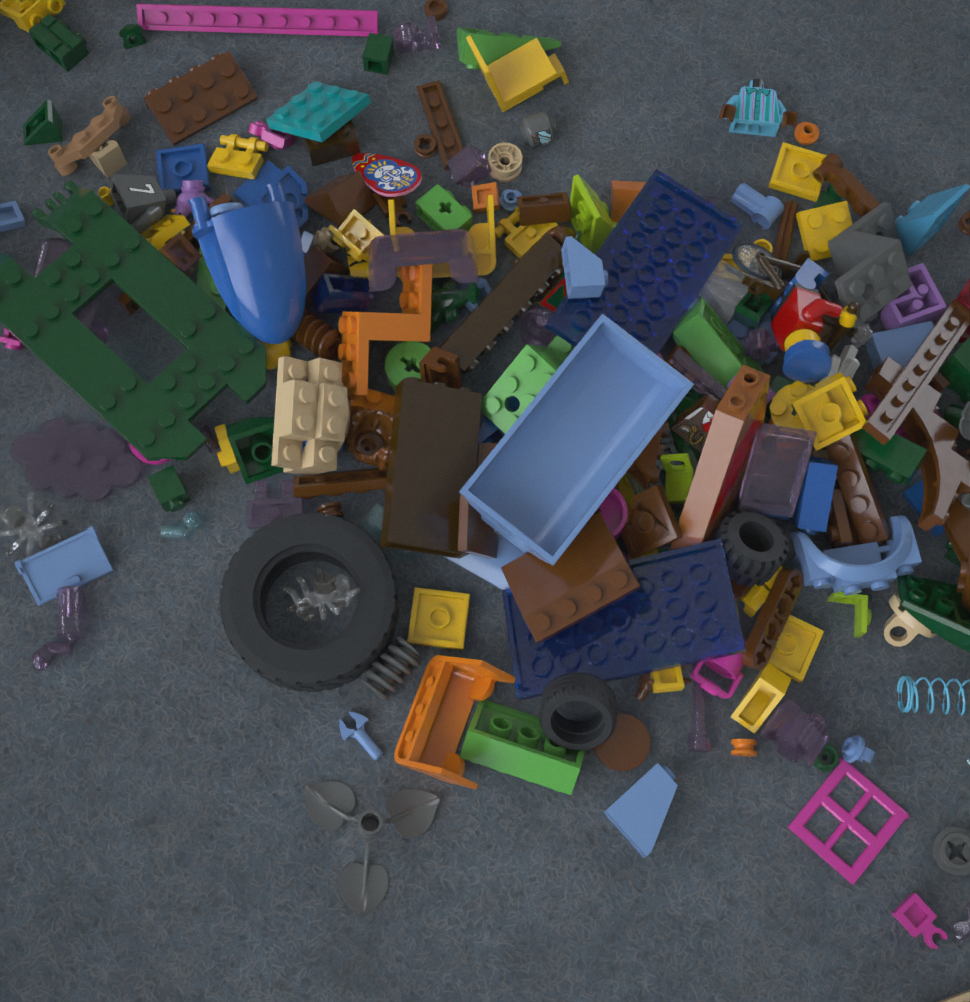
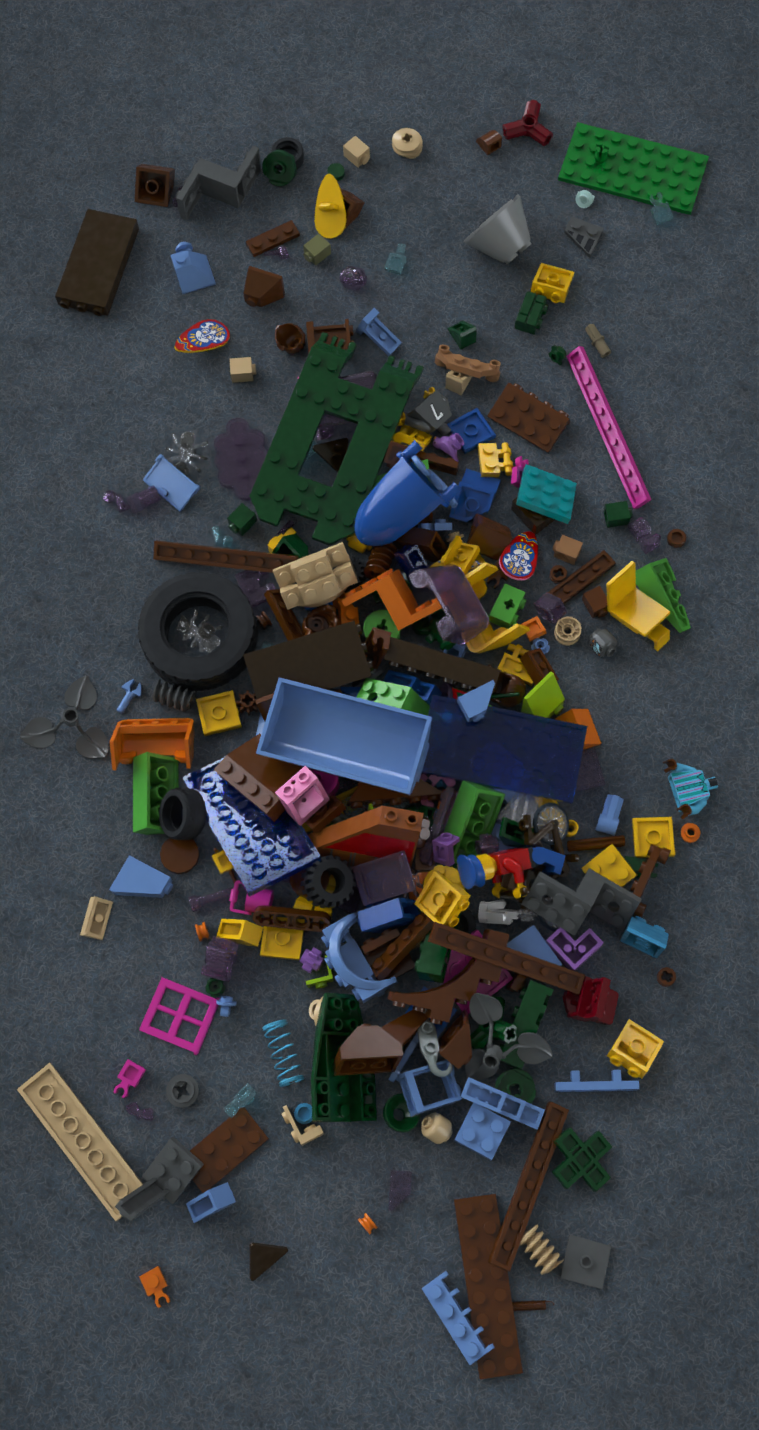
camera: 75 degrees right, 0 degrees up
(131, 340) = (332, 452): none -> dark brown piece
(213, 533) = (220, 556): none -> reddish brown plate
(399, 121) = (567, 549): none -> medium nougat brick
(446, 578) = (243, 700): none -> reddish brown gear
(482, 117) = (595, 602): none -> reddish brown brick
(501, 359) = (423, 689): none -> blue slope
(631, 528) = (309, 802): none -> bright pink window
(673, 893) = (96, 918): none -> tan slope
(830, 615) = (312, 960): none -> medium lavender gear

